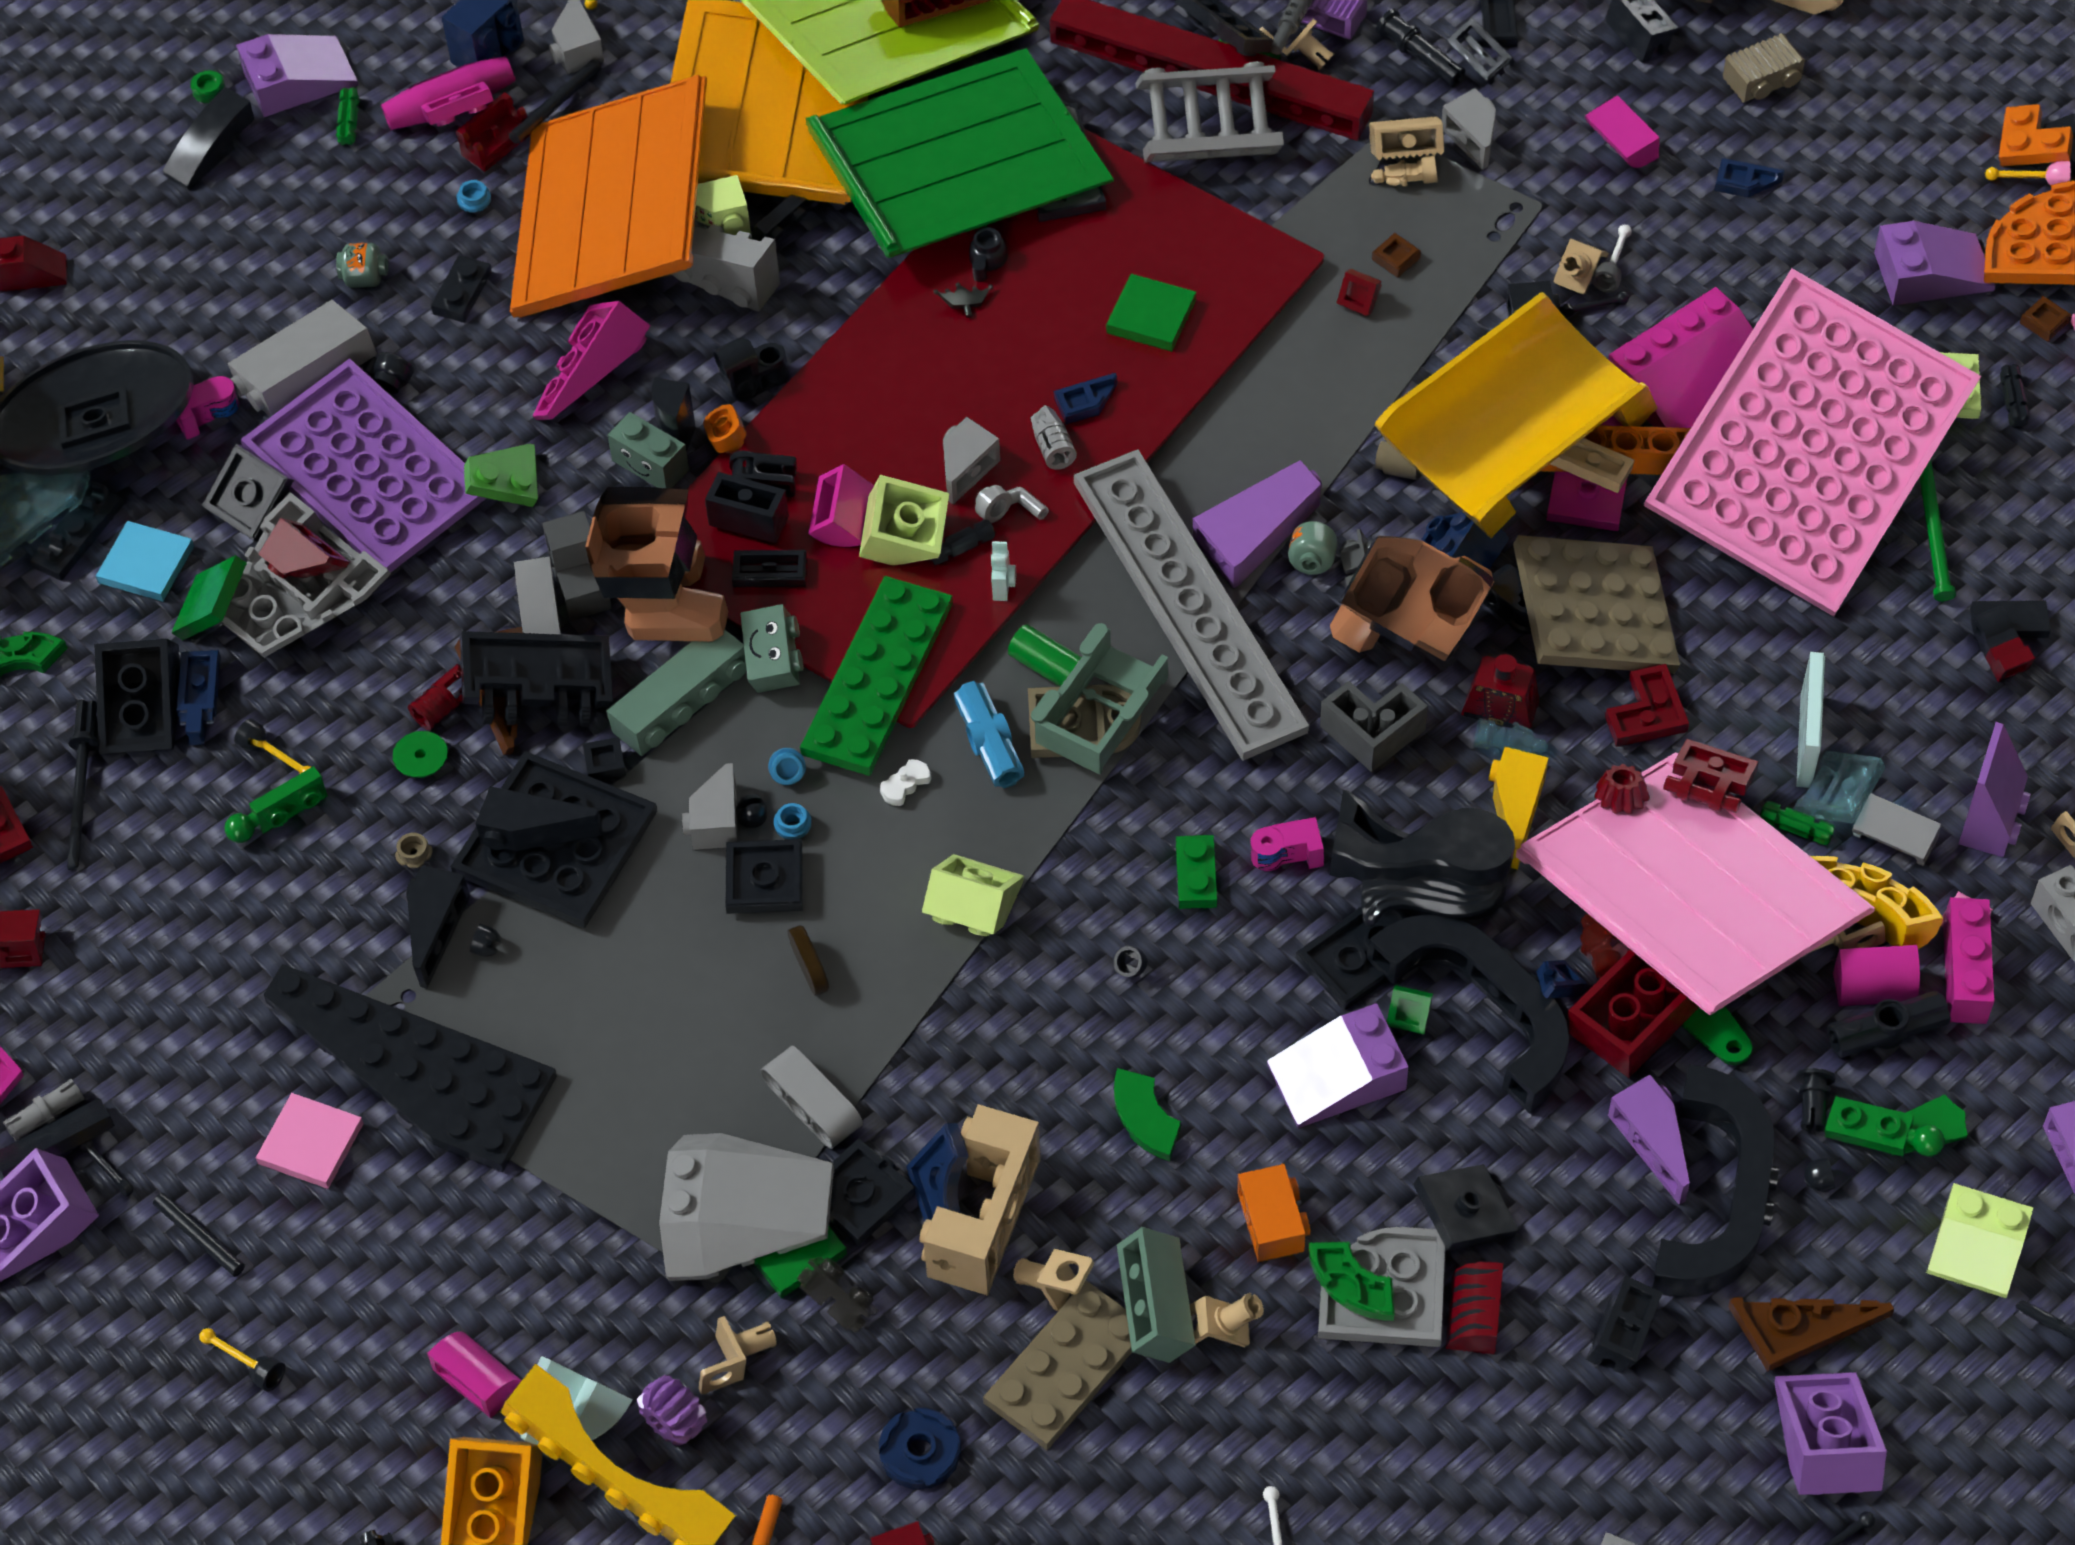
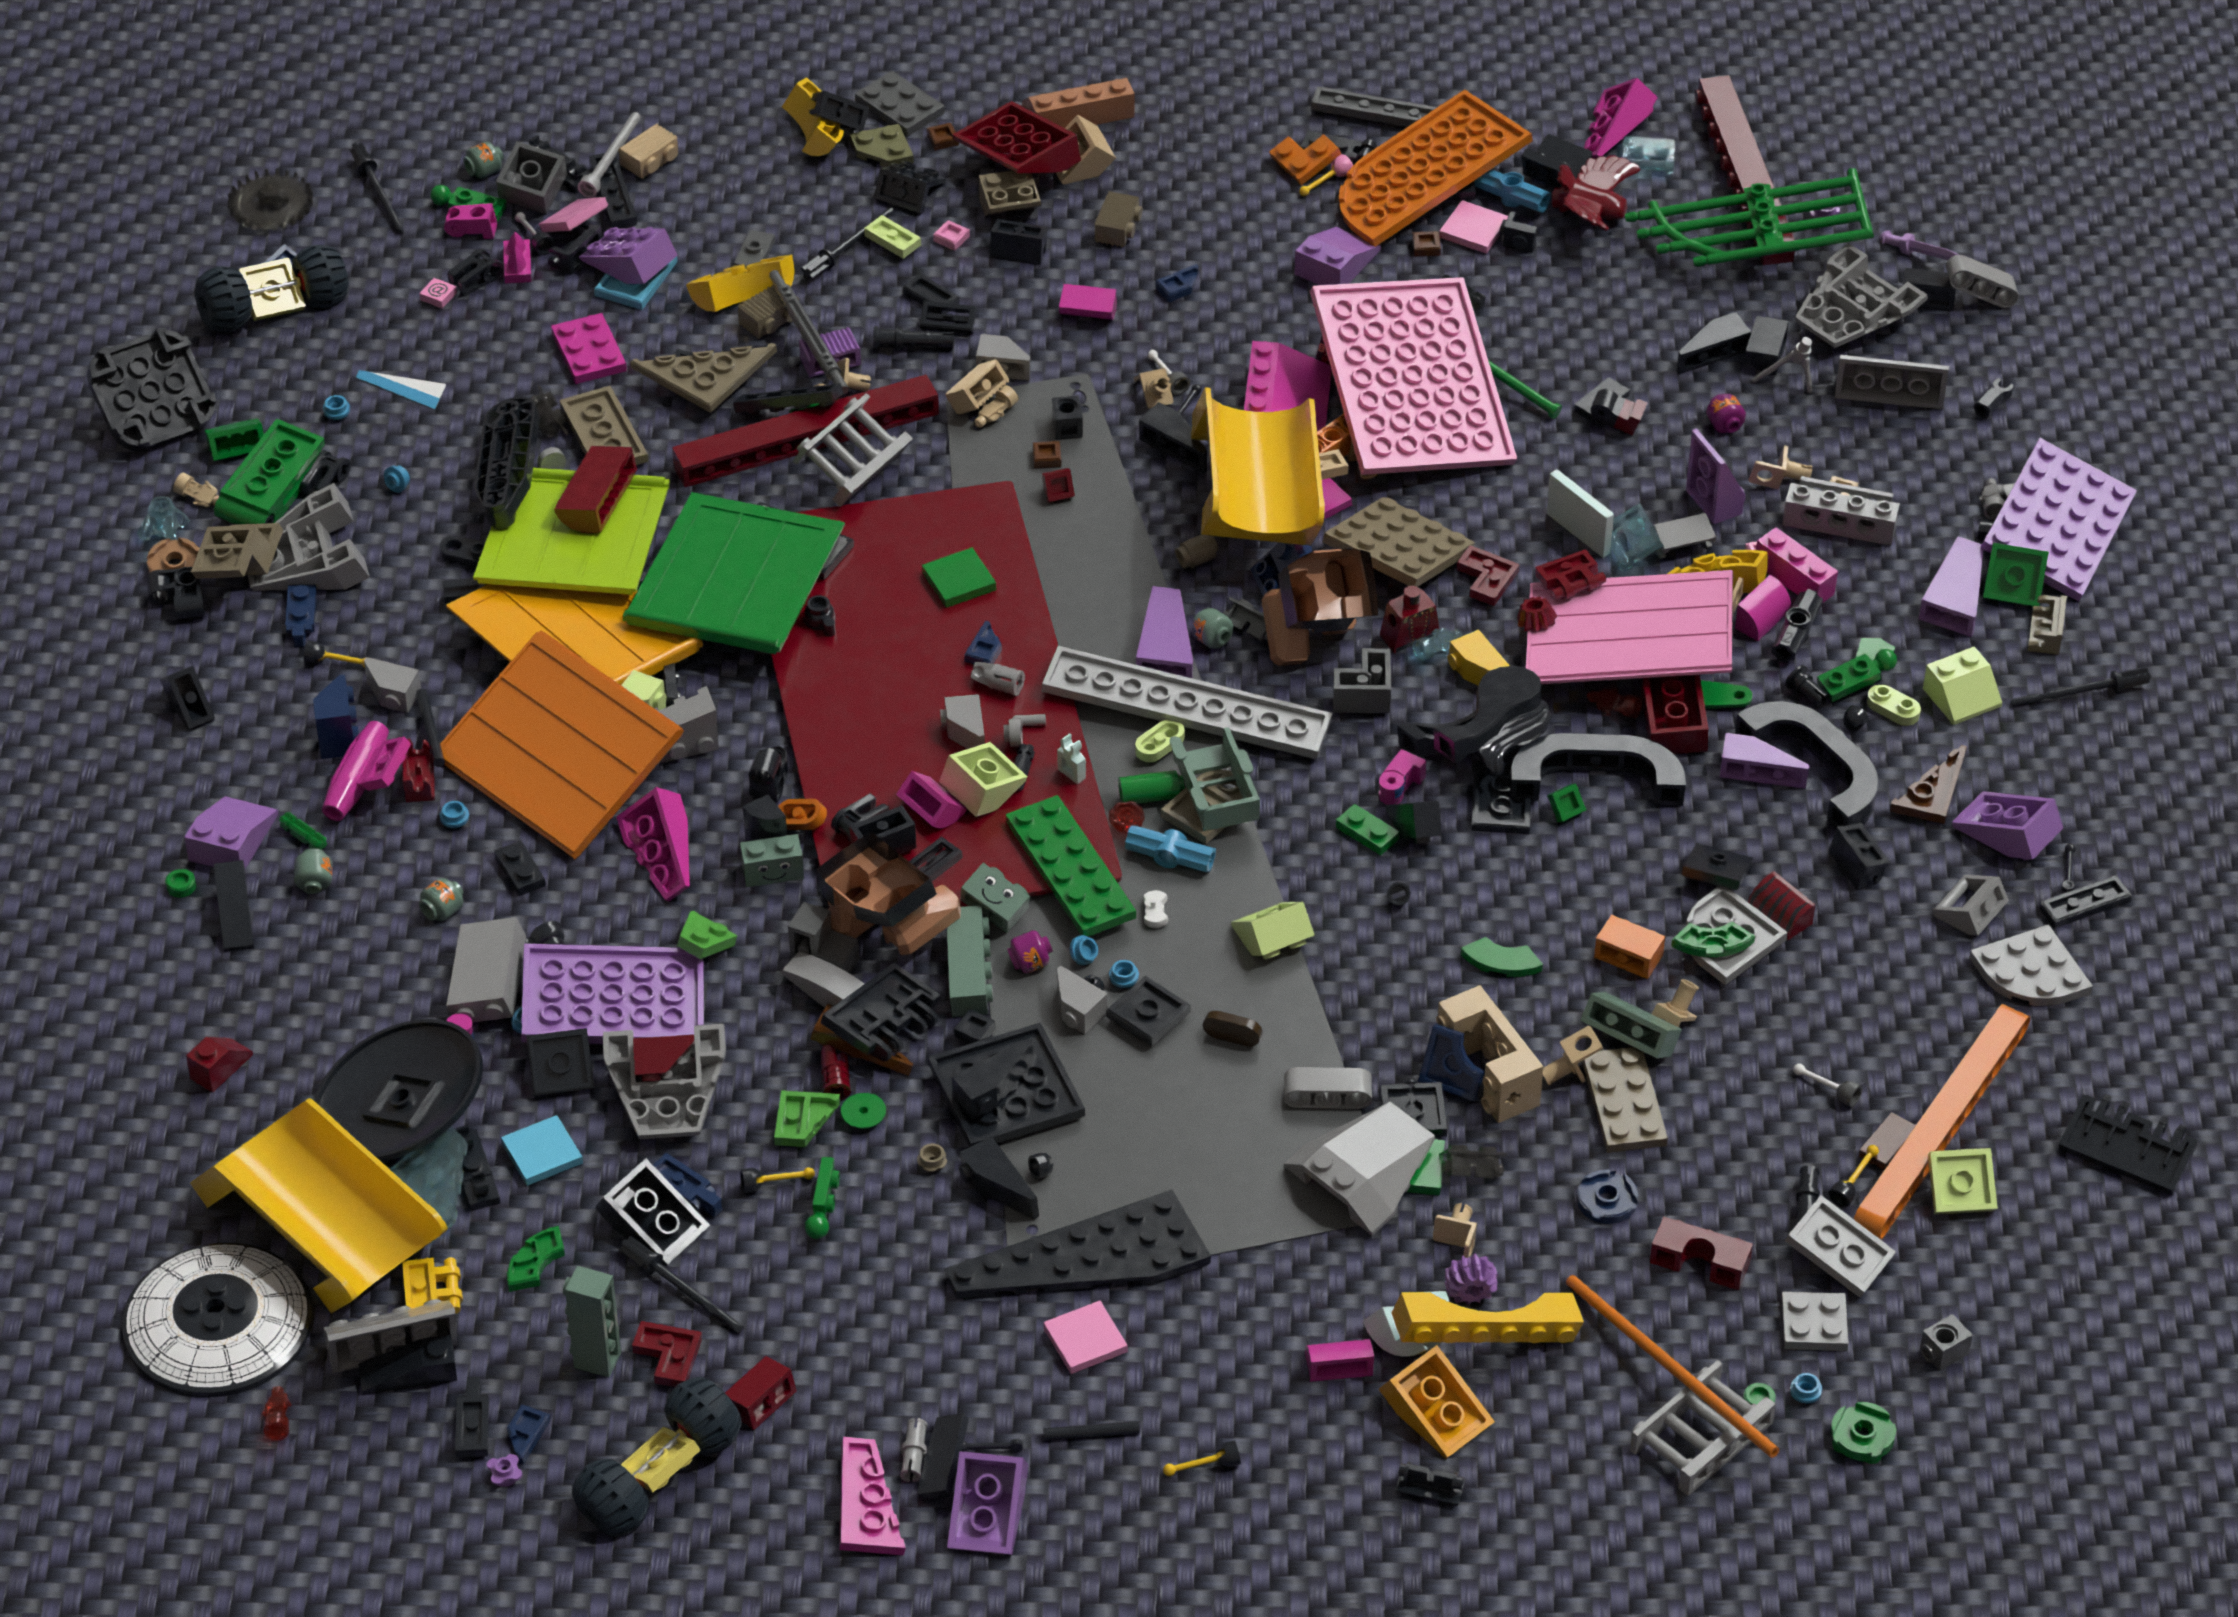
camera: 50 degrees left, 10 degrees down
(209, 598) = (623, 1129): green tile -> none
(302, 157) = (313, 871): none -> sand green head
(364, 714) = (802, 1116): none -> bright green wing
(737, 727) = (1029, 951): none -> magenta head
(964, 298) = (841, 648): pearl dark grey piece -> none
(993, 660) = (1125, 815): none -> clear red plate
(1122, 618) = (1155, 742): none -> yellowish green plate
(1240, 901) = (1416, 820): none -> black slope
(1340, 1067) = (1570, 855): slope -> none
(1455, 231) = (1067, 417): none -> black brick
(1560, 980) = (1620, 728): dark blue tile -> none
(1681, 1495) = (1979, 909): none -> light grey tile
(1797, 822) = (1635, 568): green axle -> none
(1885, 1193) = (1893, 705): none -> yellowish green plate

